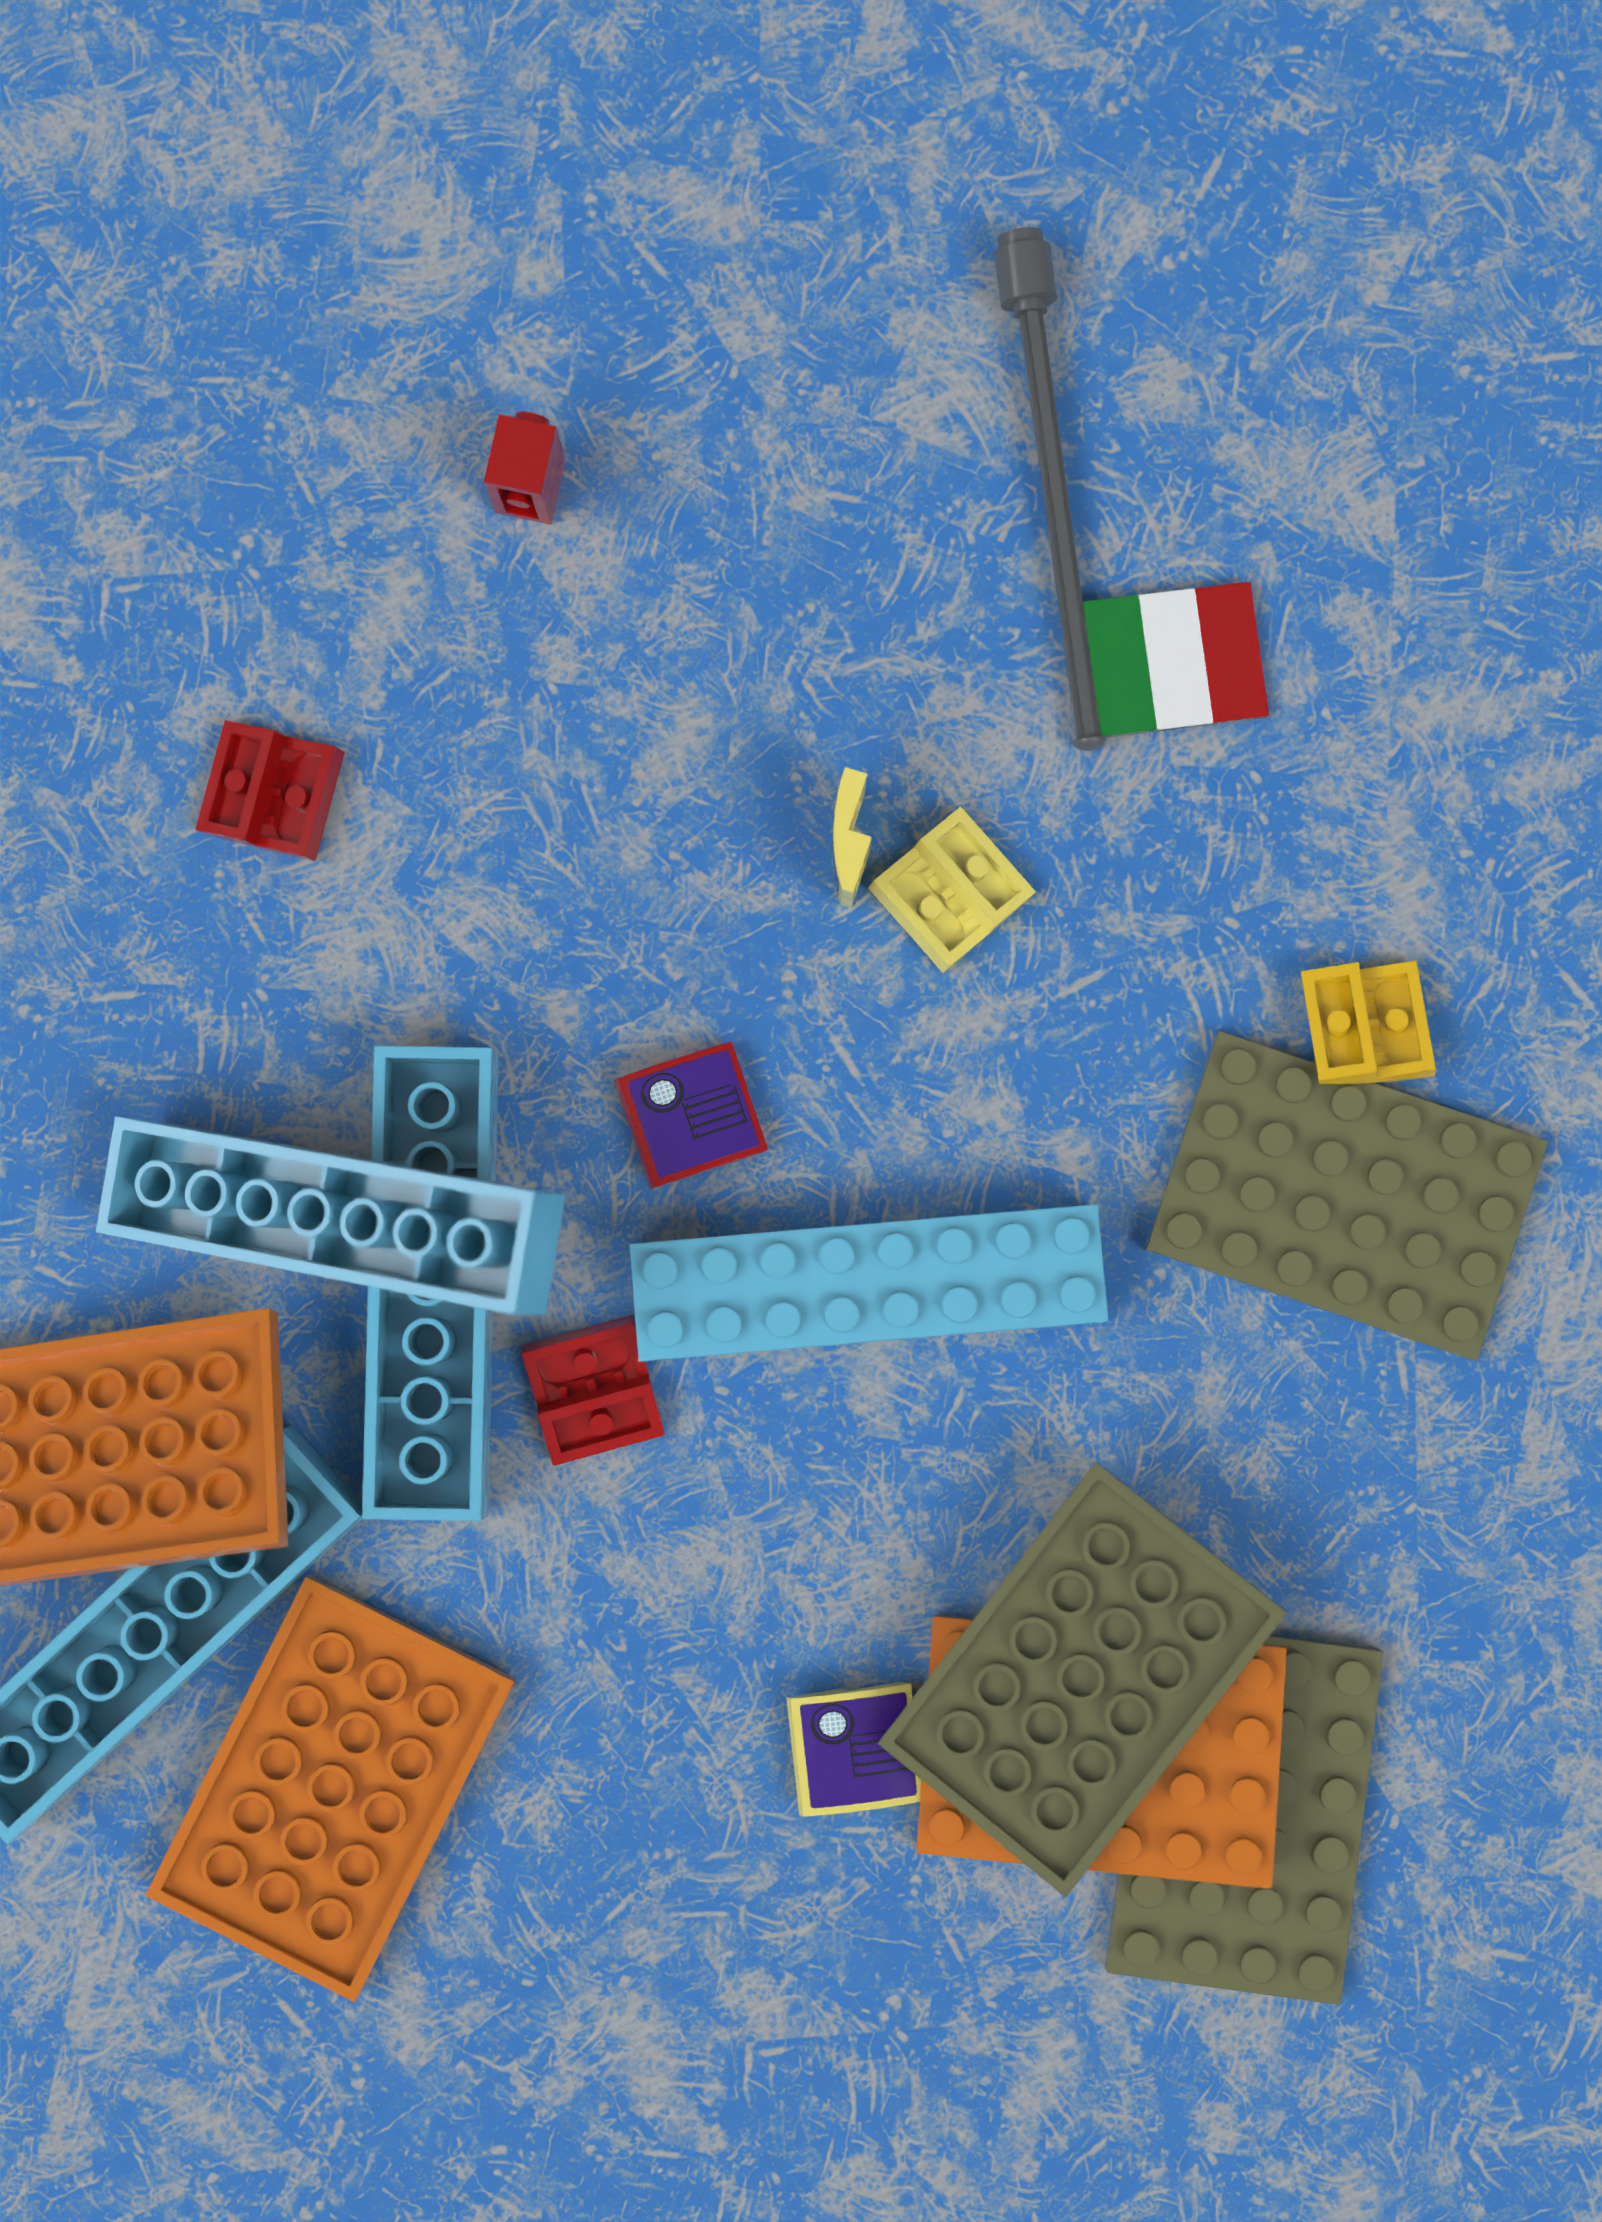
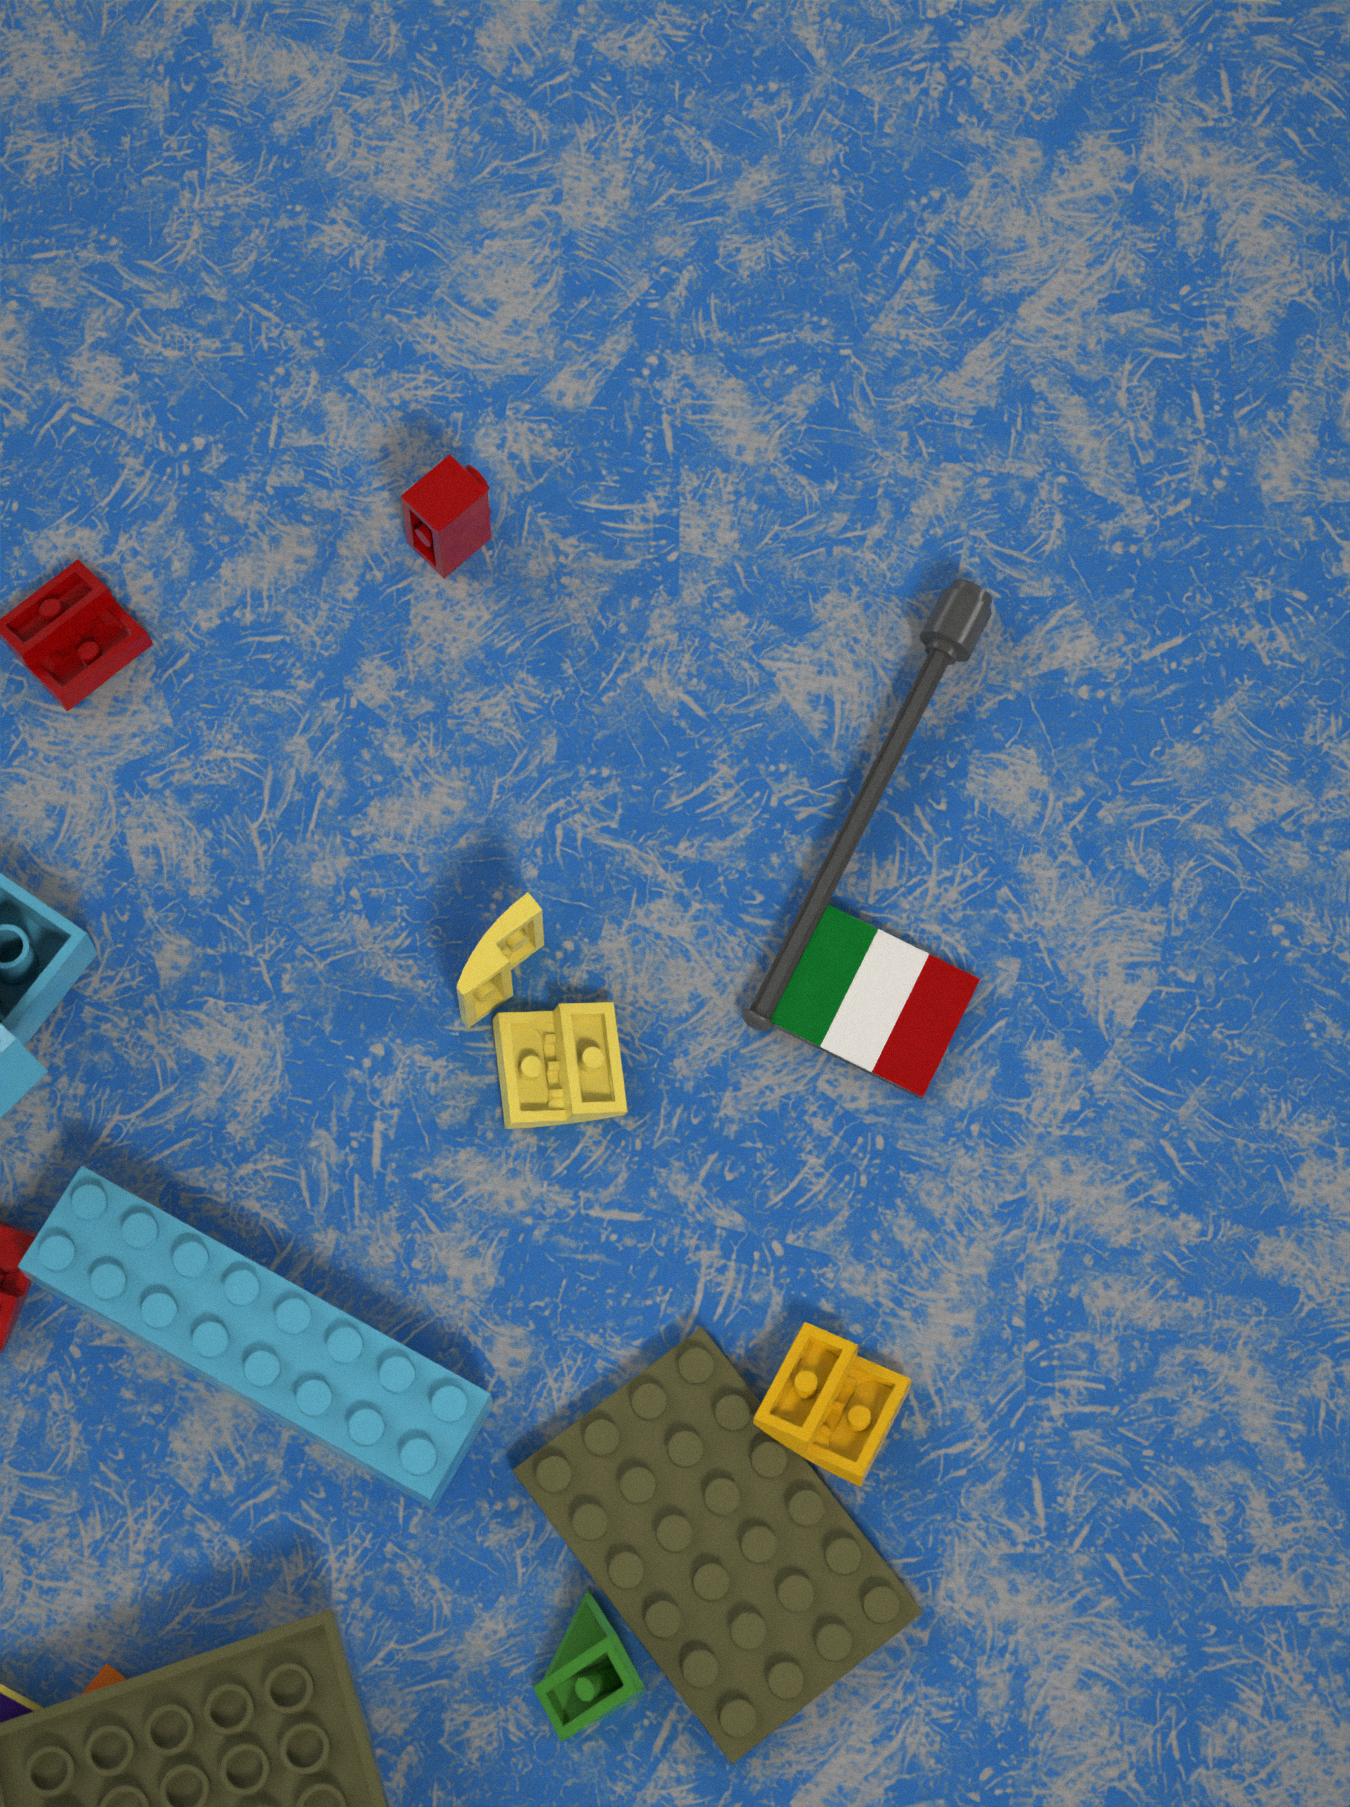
camera: 30 degrees right, 15 degrees down
(690, 1115) = (214, 1104): dark purple slope -> none
(1317, 1367) = (588, 1674): none -> bright green slope

